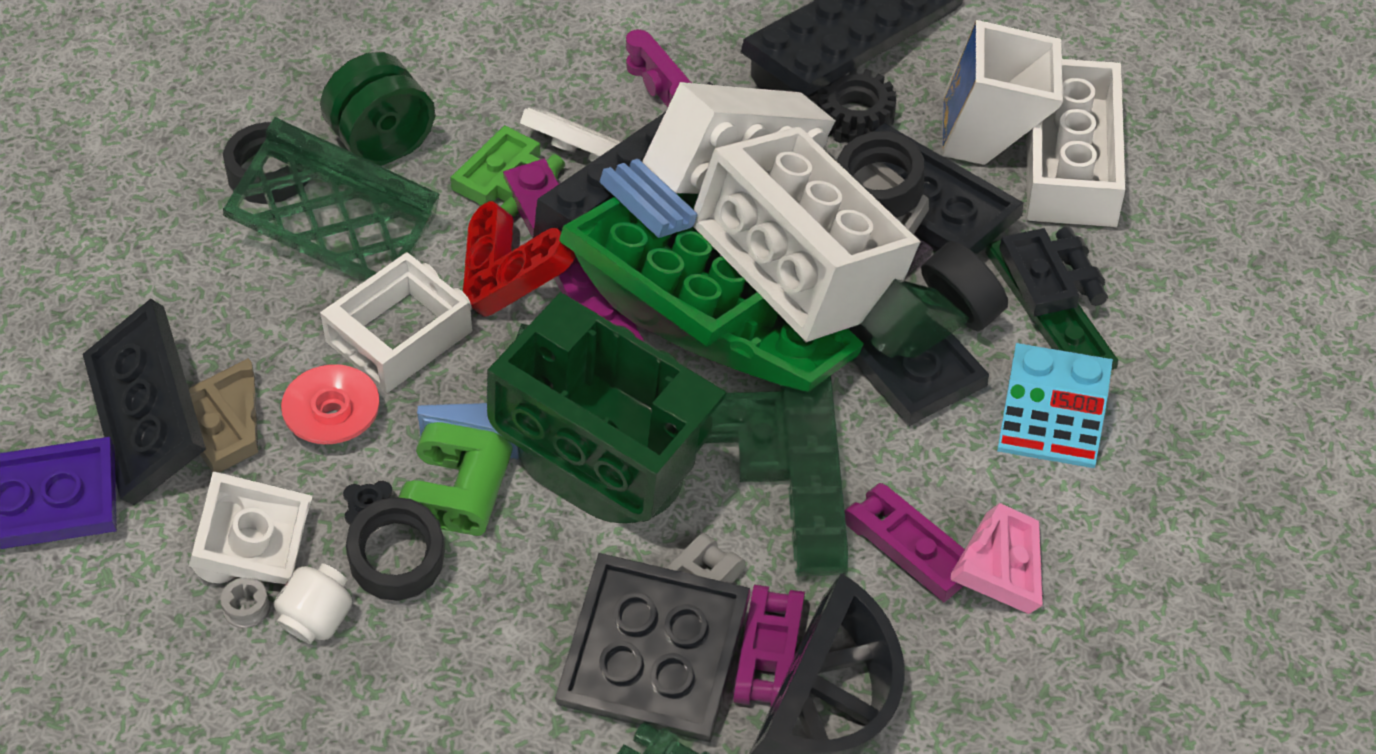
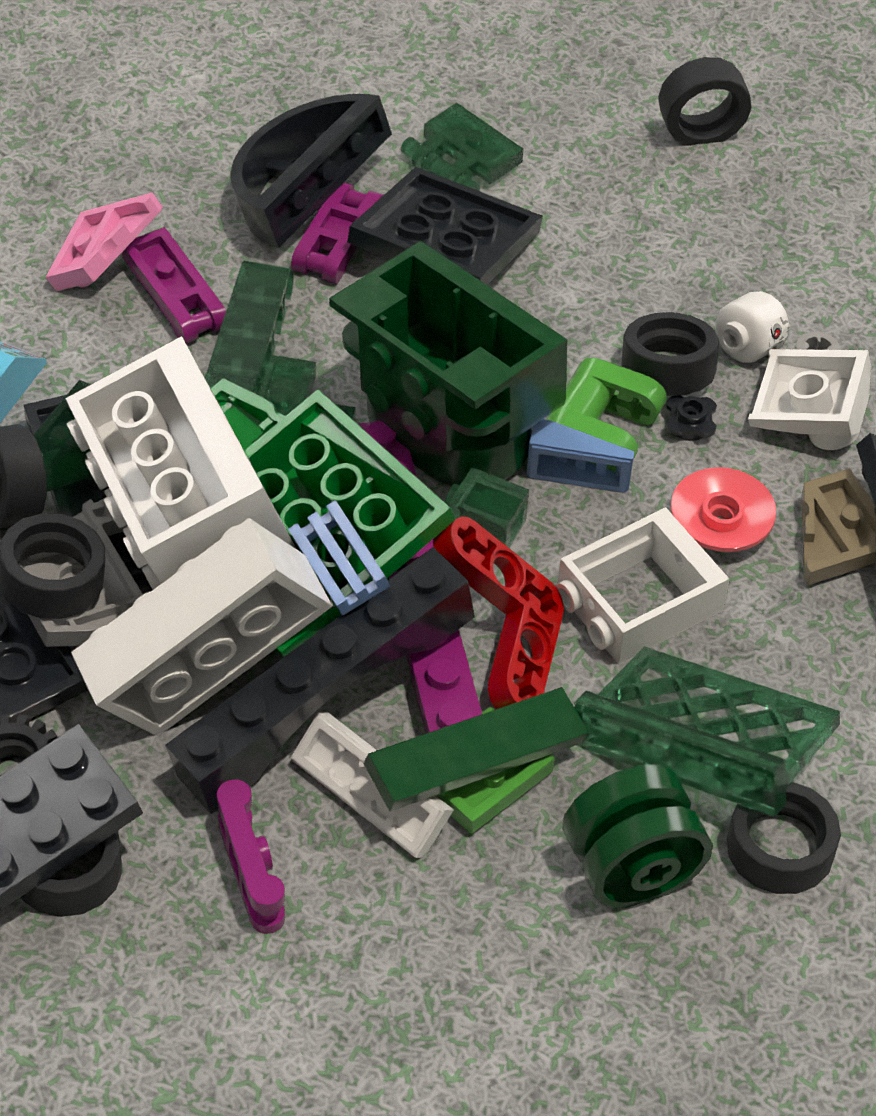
camera: 170 degrees left, 0 degrees up
(509, 147) = (475, 748): none -> dark green tile

